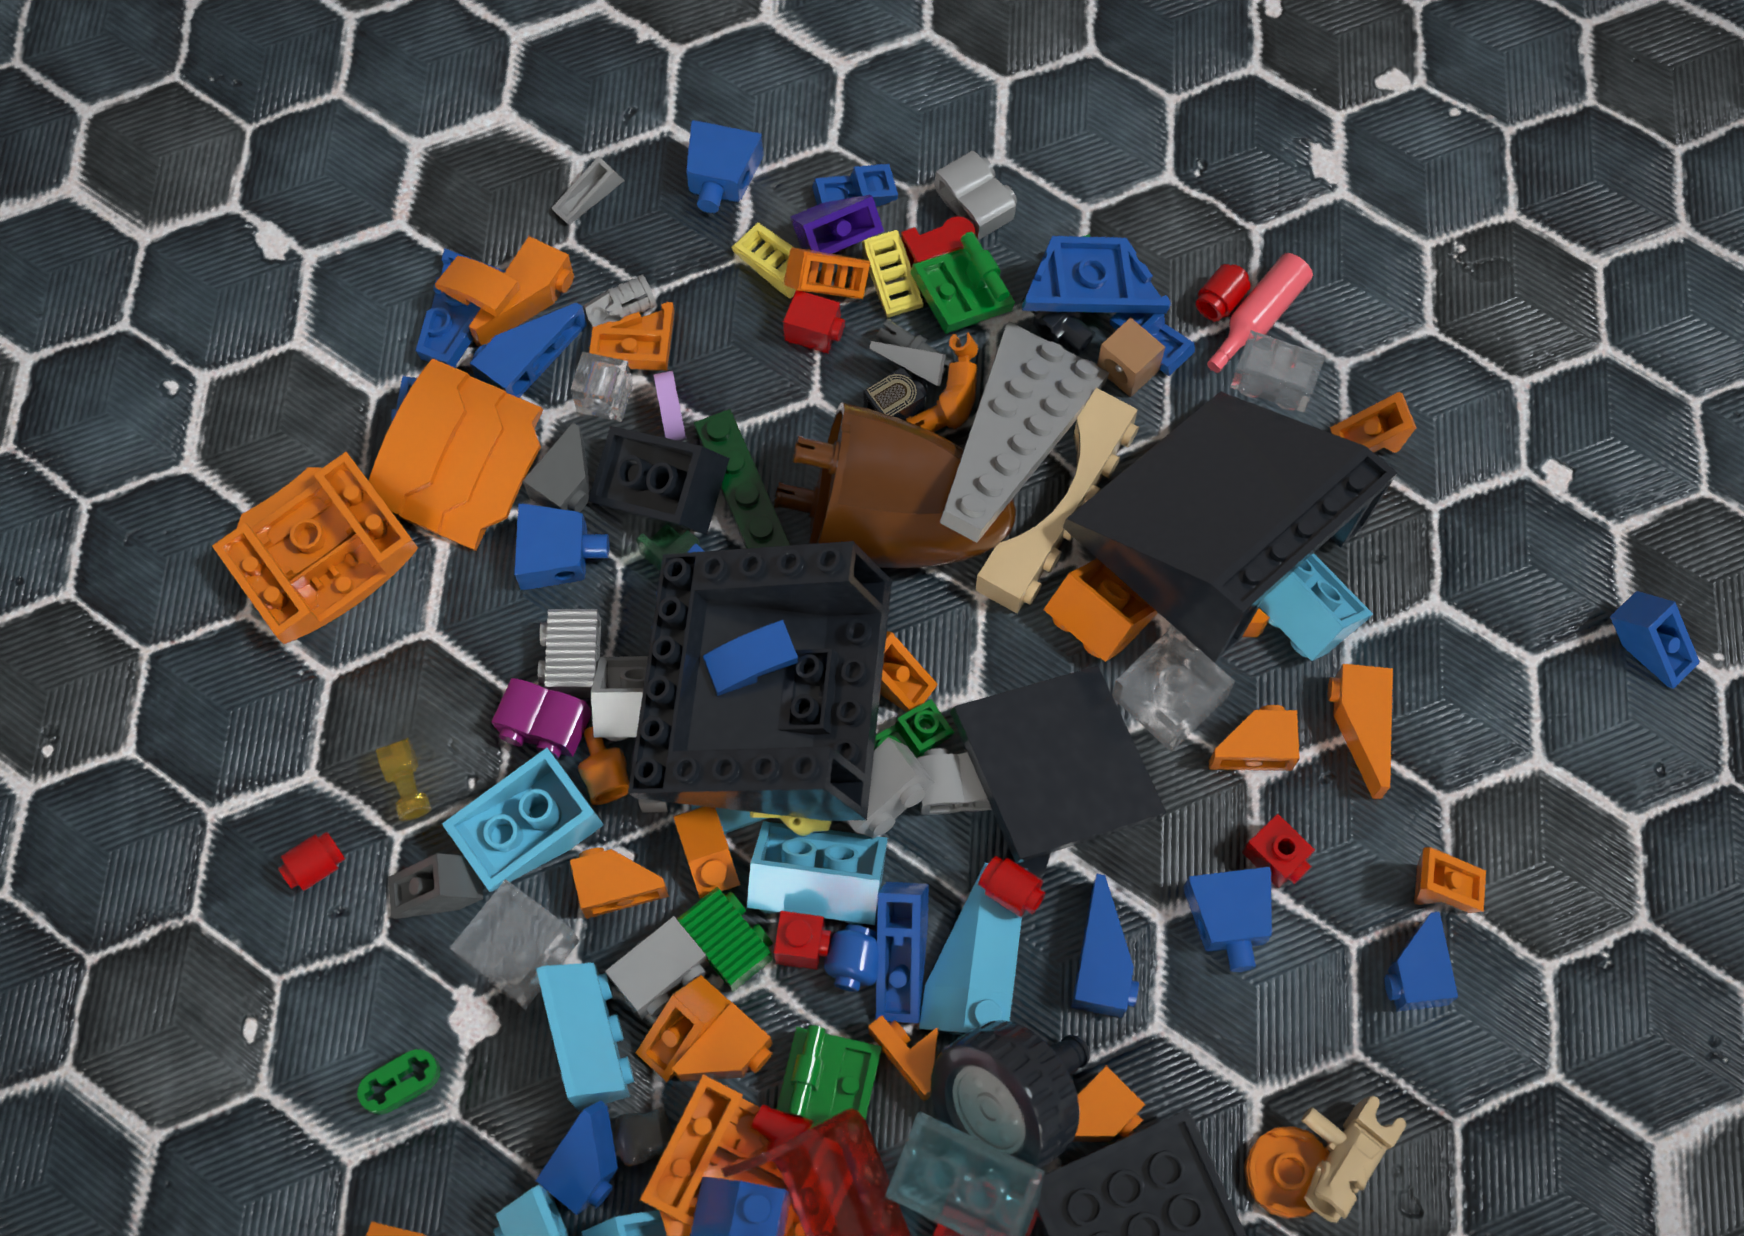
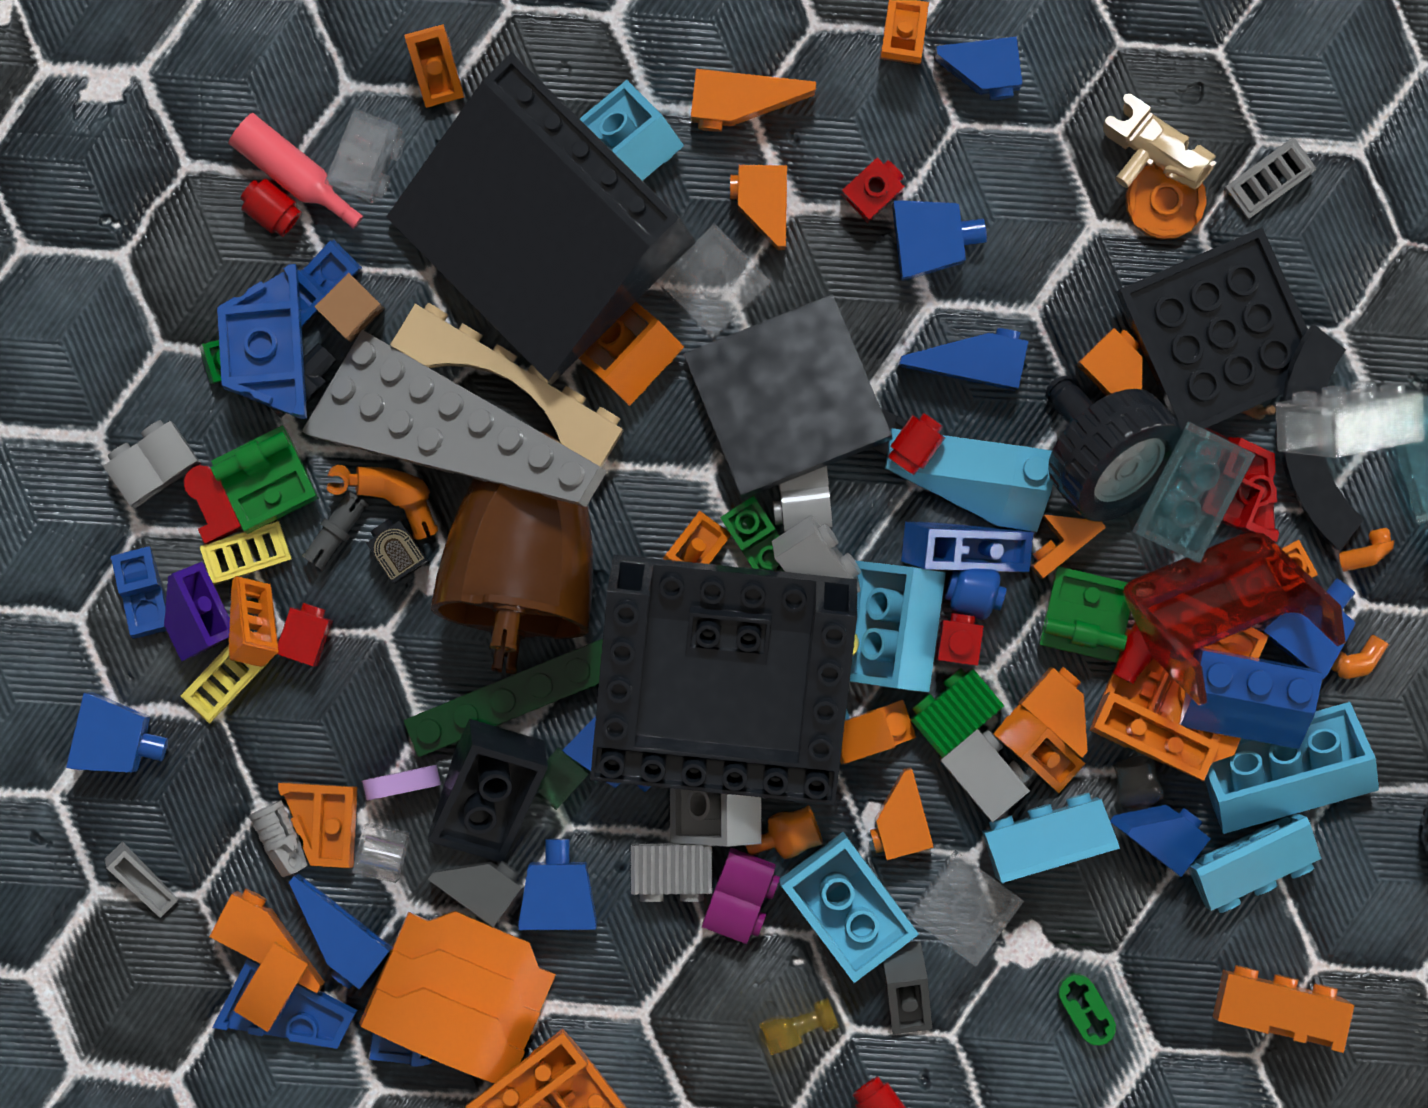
camera: 85 degrees left, 20 degrees up
(750, 656) = (699, 691): blue slope -> none
(921, 362) = (356, 528): light grey piece -> none

